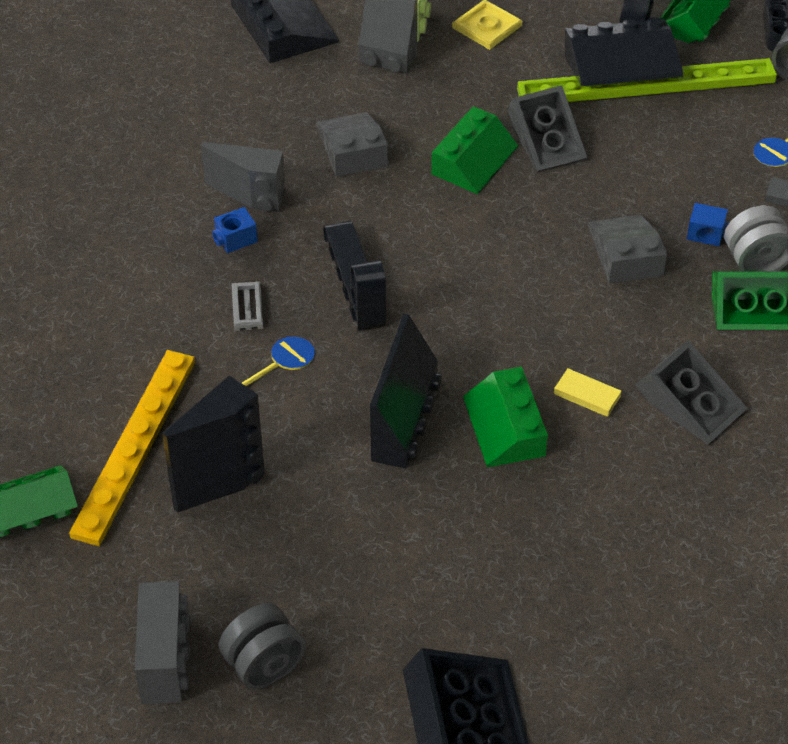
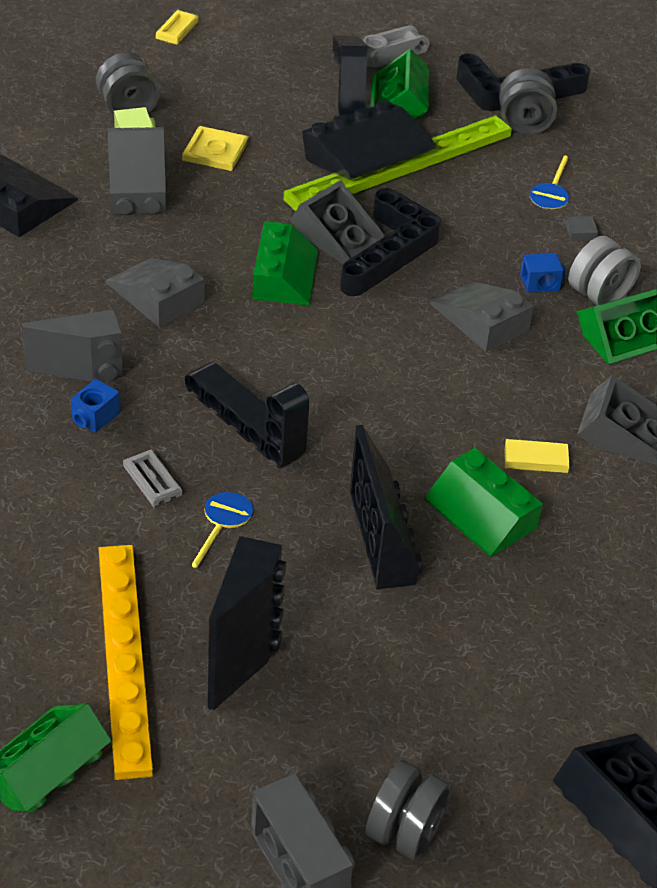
camera: 30 degrees left, 5 degrees down
(612, 155) = (413, 234): none -> black beam

